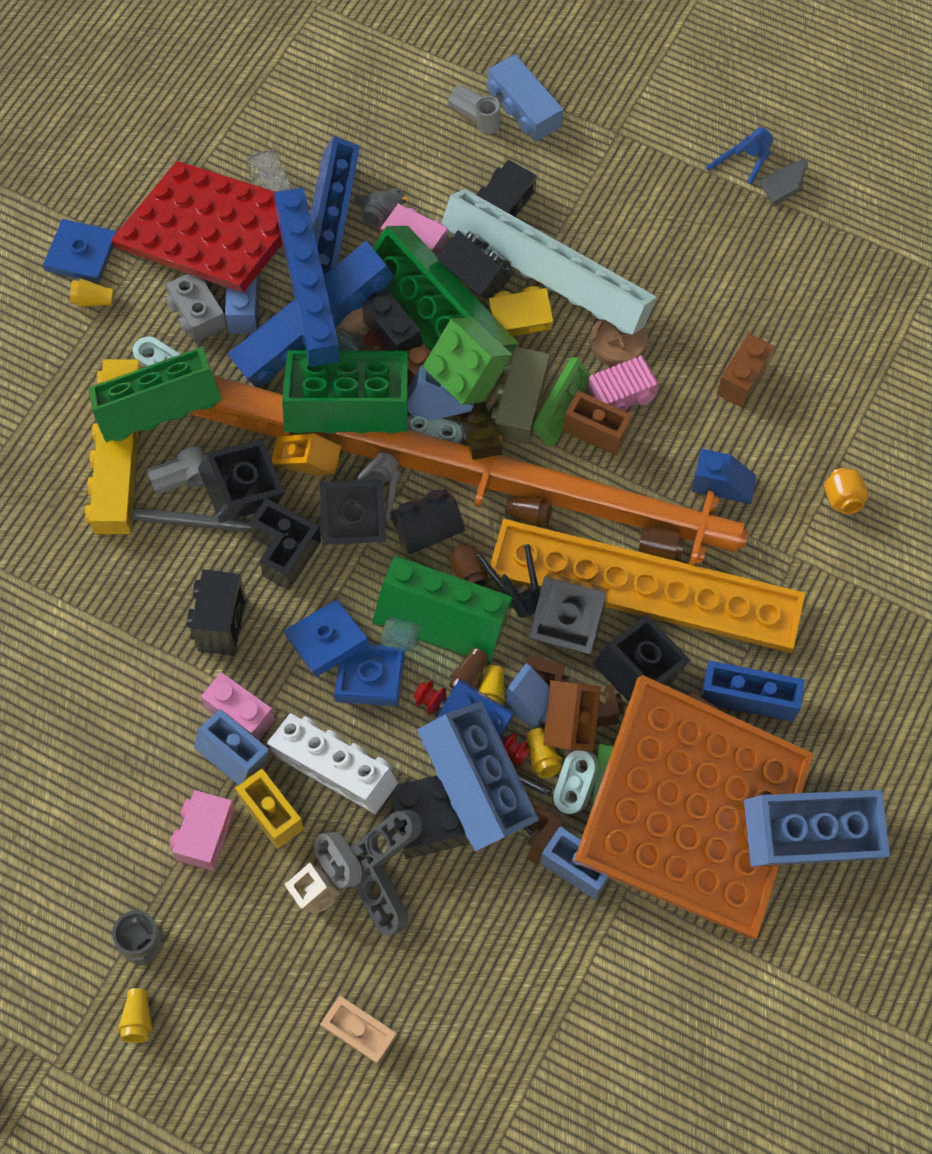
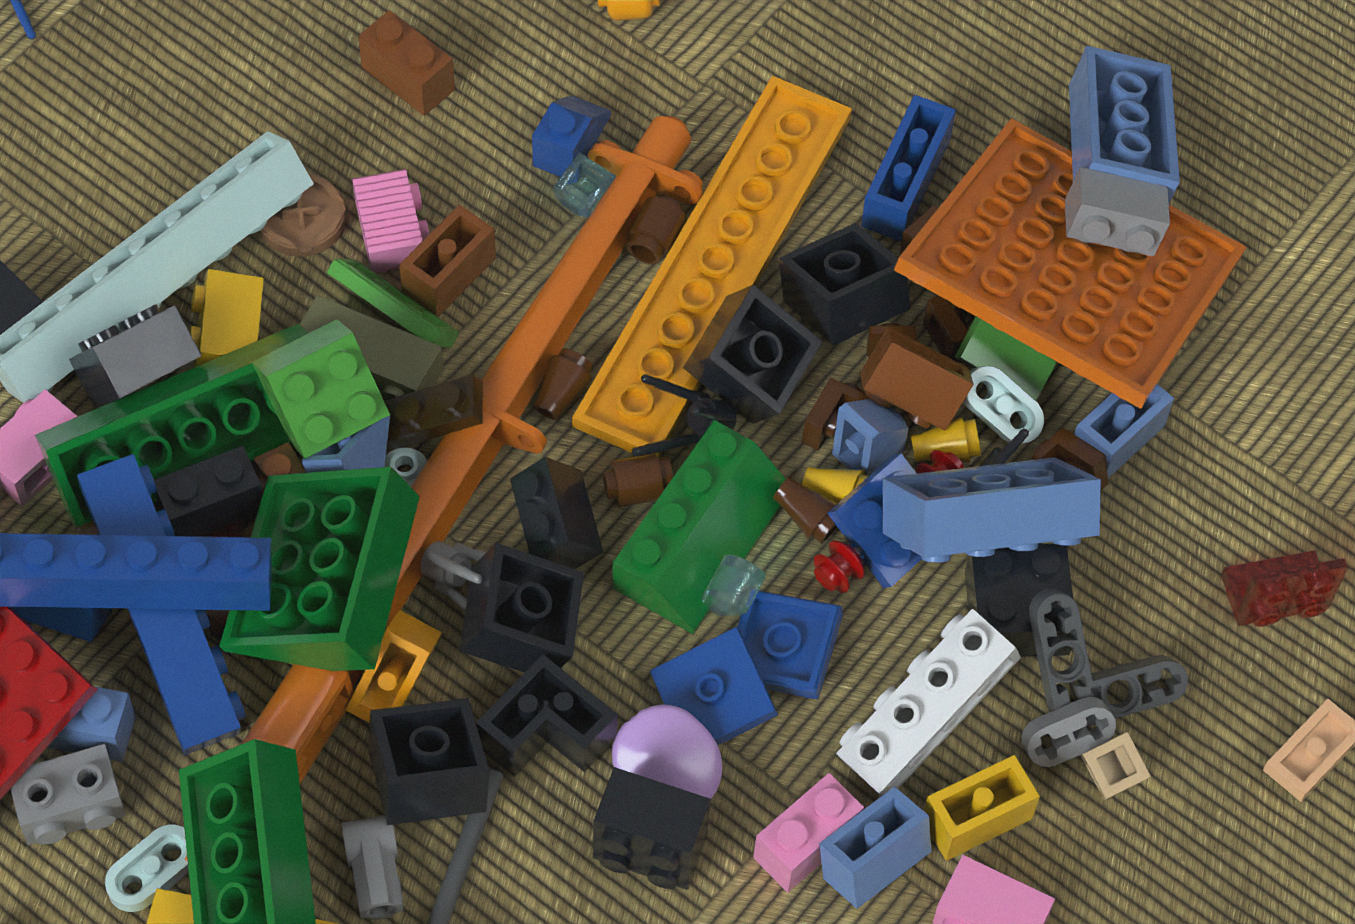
camera: 80 degrees left, 5 degrees down
(274, 617) = (669, 748): none -> lavender piece
(482, 992) = (1282, 587): none -> clear red bracket
(682, 491) = (582, 185): none -> clear light blue brick
(734, 825) = (1117, 211): none -> light grey brick

